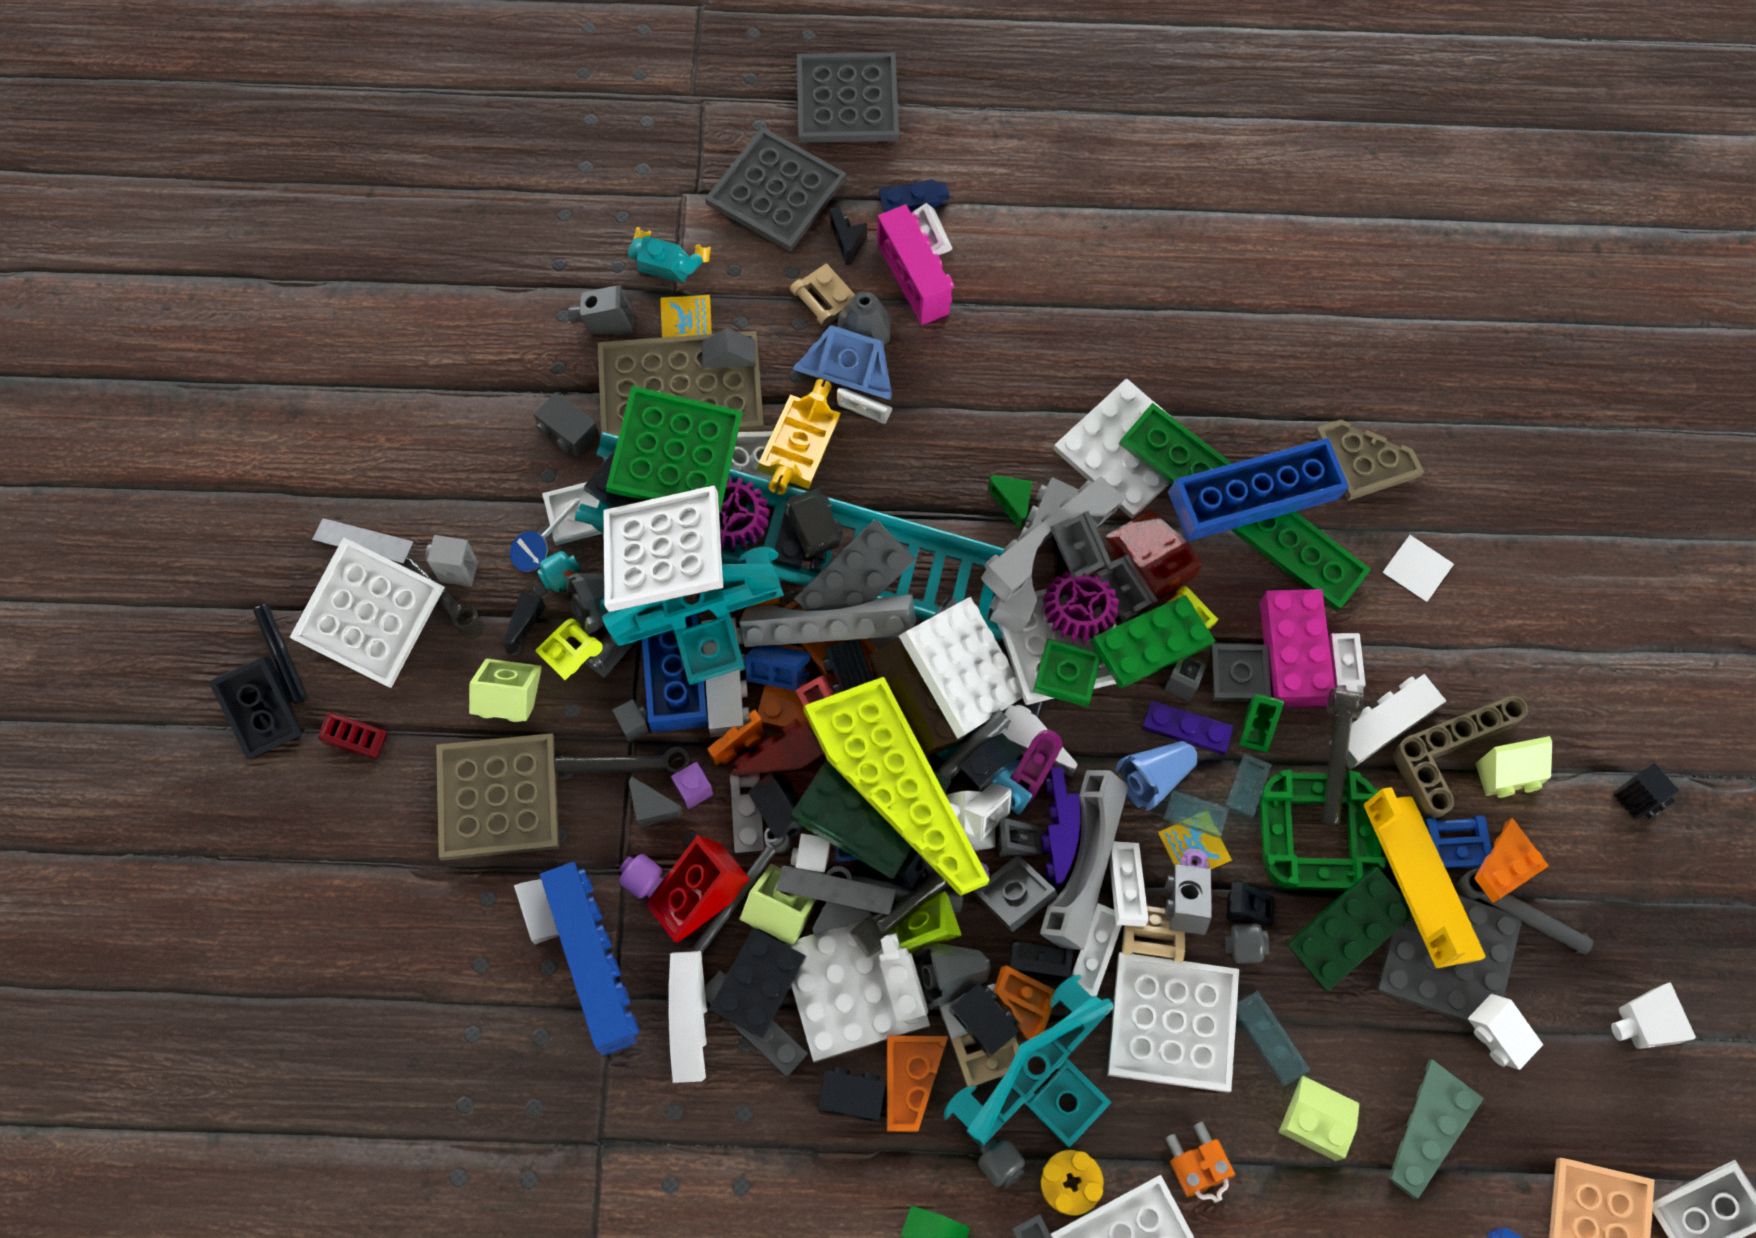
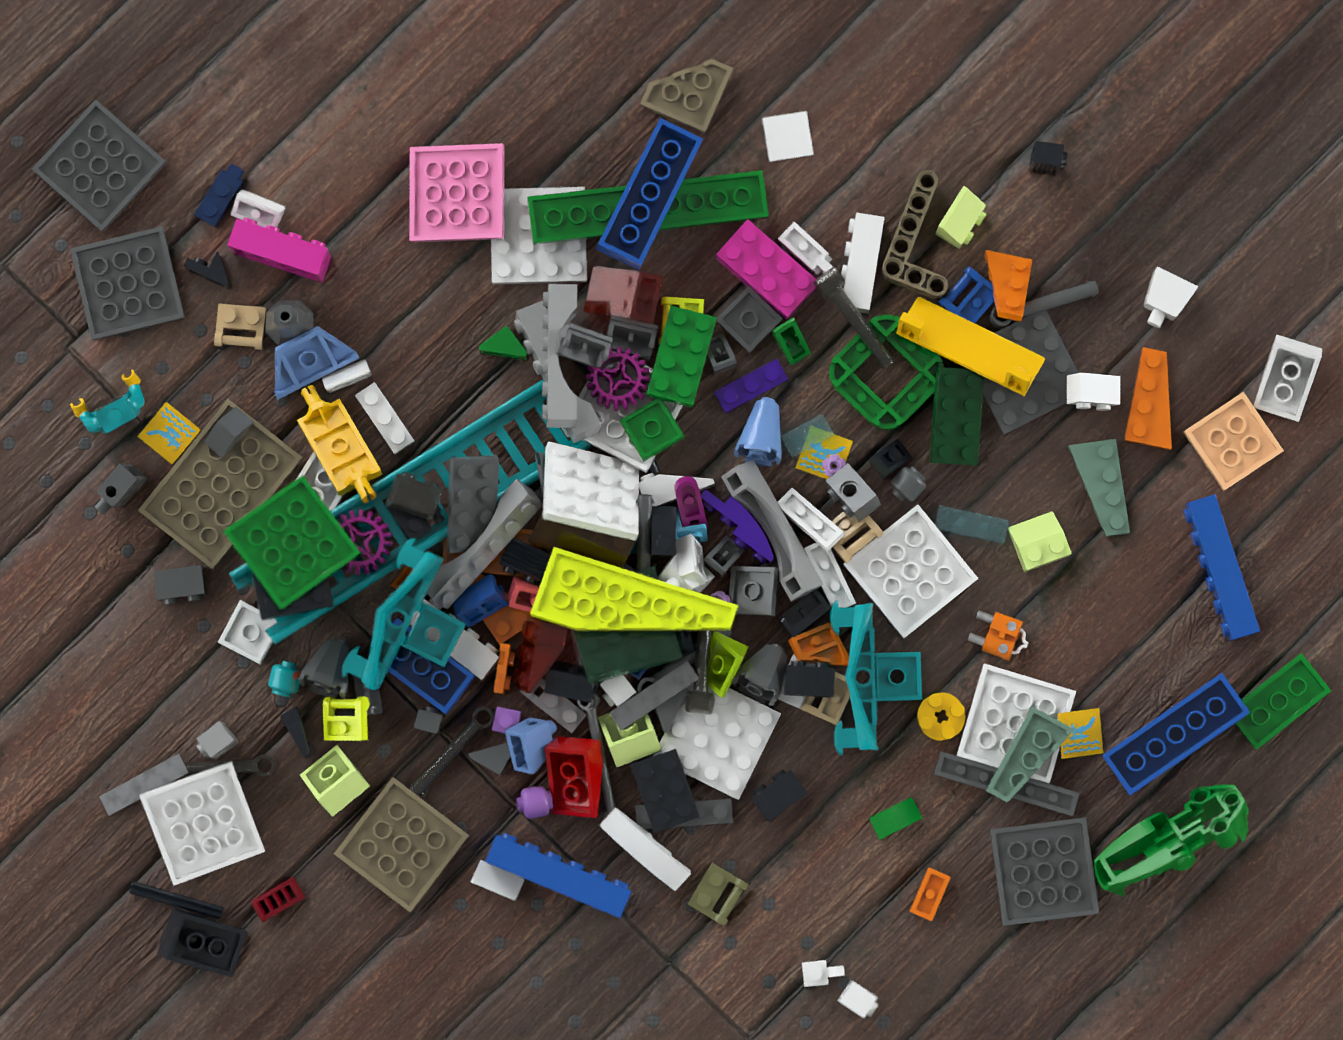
camera: 45 degrees left, 15 degrees up
(531, 547) = (250, 683): blue piece -> none
(662, 549) = (356, 611): white plate -> none
(689, 816) = (528, 743): none -> medium blue torso
(705, 1116) = (711, 889): none -> olive plate
(859, 463) = (384, 418): none -> white plate
(902, 980) = (743, 707): white hinge -> none
(910, 1077) = (798, 751): orange wing -> none
(1001, 1163) = (894, 746): dark grey head -> none
(1097, 354) = (457, 193): none -> bright pink plate
(1247, 786) = (820, 387): clear light blue plate -> none
(1544, 1103) = (1150, 406): none -> orange wing

